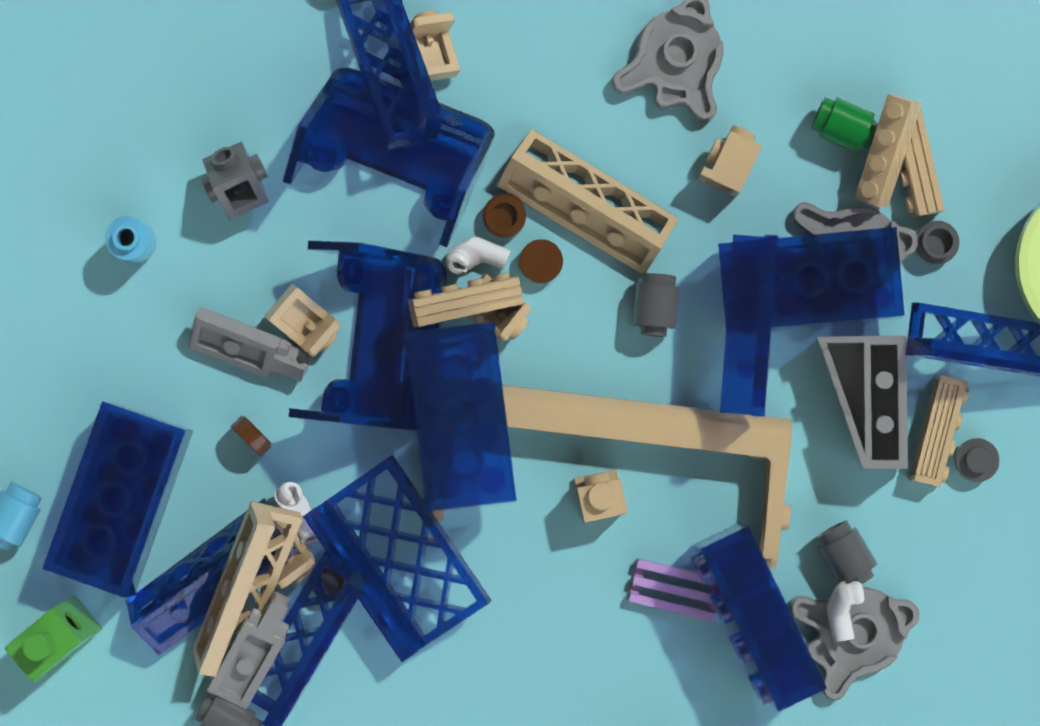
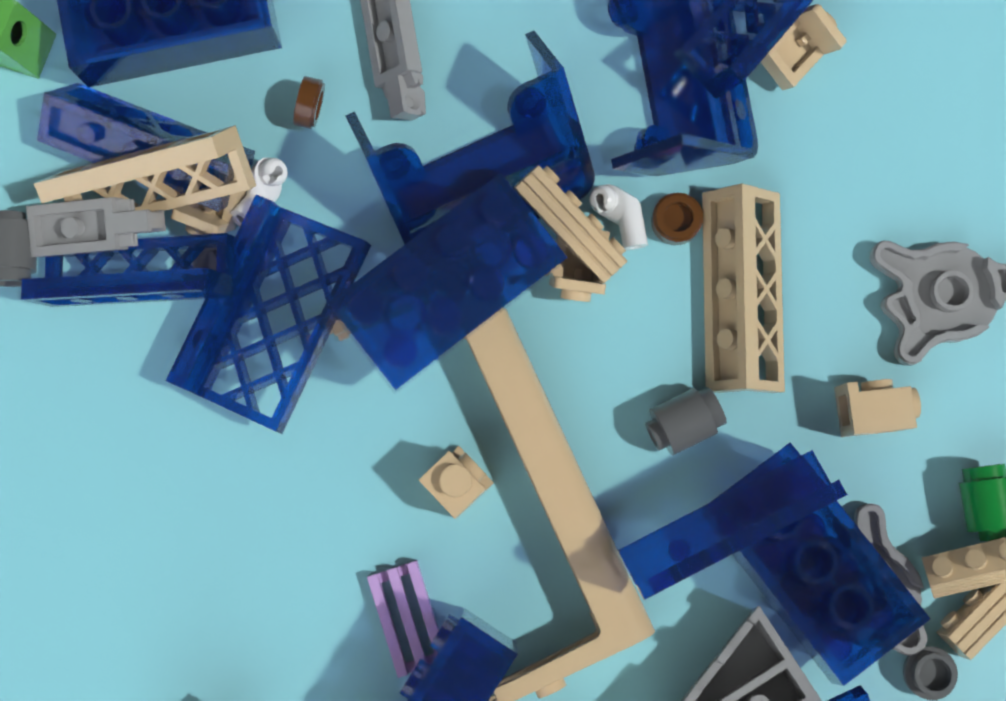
camera: 60 degrees right, 5 degrees down
(303, 321) = (452, 84): tan bracket -> none
(541, 261) = (655, 281): reddish brown tile -> none

